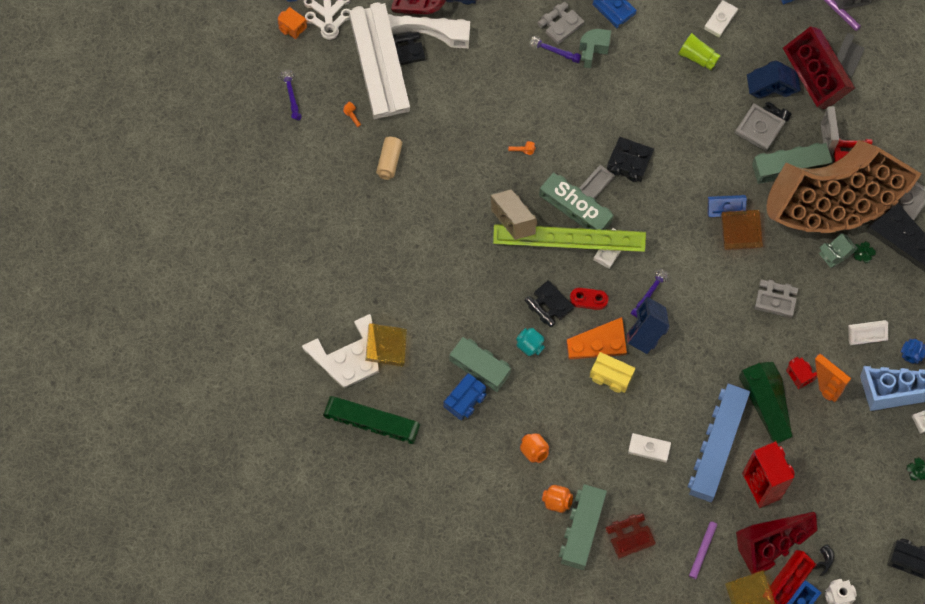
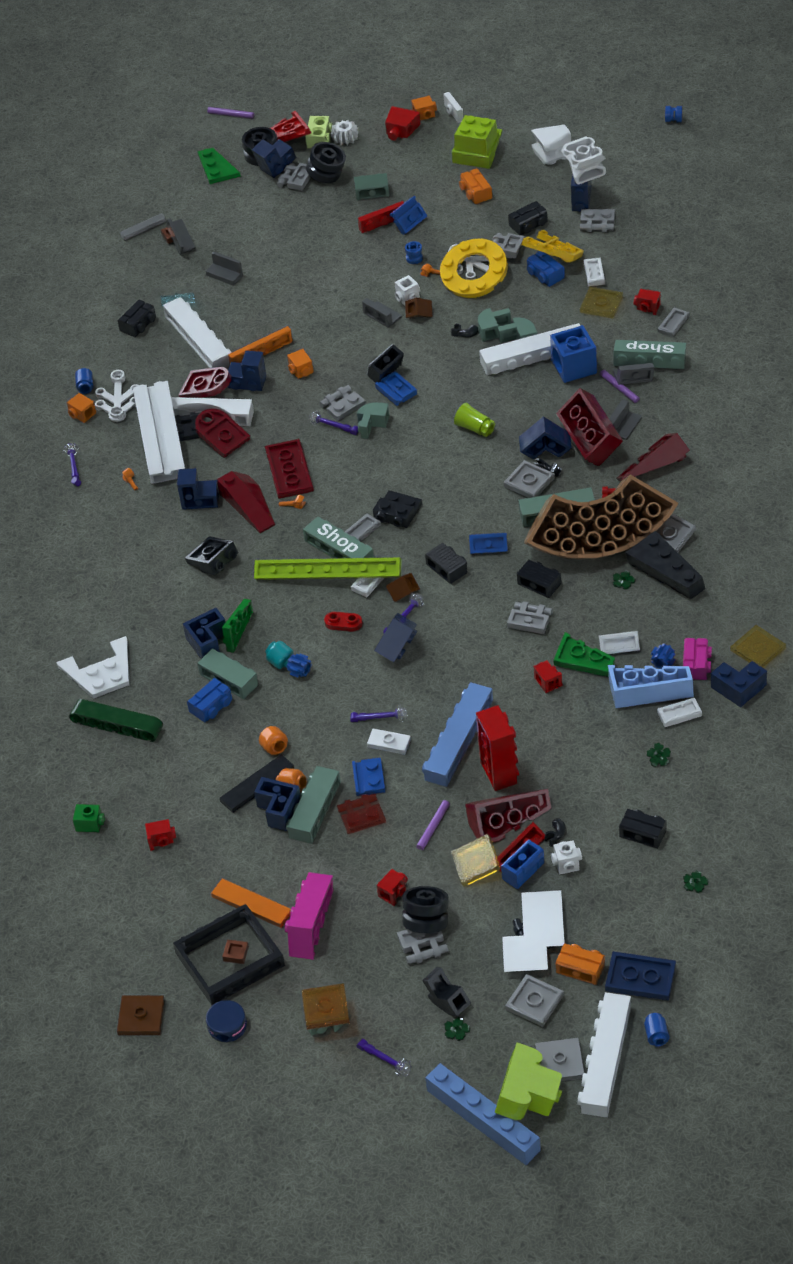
camera: 10 degrees right, 20 degrees down
(357, 541) = (88, 818): none -> green brick
(386, 344) = (138, 659): clear yellow tile -> none
(389, 157) = (161, 511): tan brick -> none
(425, 136) = (196, 493): none -> dark blue brick
(432, 561) = (160, 833): none -> red brick
(440, 59) = (221, 432): none -> dark red tile
(448, 215) = (212, 555): none -> black plate
(449, 316) = (204, 631): none -> dark blue brick
(474, 140) = (246, 499): none -> dark red wedge
(483, 304) = (236, 624): none -> green wing
(513, 214) = (273, 548): dark tan brick -> none
(514, 104) = (289, 468): none -> dark red tile
(522, 497) = (245, 790): none -> black tile
(551, 355) = (299, 665): none -> blue gear
(551, 522) = (278, 800): none -> dark blue brick
(553, 300) = (307, 622): black plate -> none
(605, 339) = (353, 655): orange wing -> none
(612, 373) = (357, 678): light yellow brick -> none
(633, 490) = (368, 776): none -> blue plate
(646, 260) = (402, 587): none -> reddish brown panel
(658, 416) = (400, 714): none -> dark purple piece
(687, 230) = (446, 563): none -> black brick
(721, 18) = (500, 395): white plate -> none
(741, 229) = (501, 561): clear orange tile -> none
(768, 398) = (513, 696): dark green wedge -> none
(782, 251) = (539, 578): none -> black brick
(830, 129) = (596, 476): light grey plate -> none
(830, 379) = (571, 672): orange wing -> none
(834, 348) = (579, 657): none -> green wing
(837, 250) = (595, 576): sand green brick -> none
(892, 98) = (663, 452): none -> dark red wedge

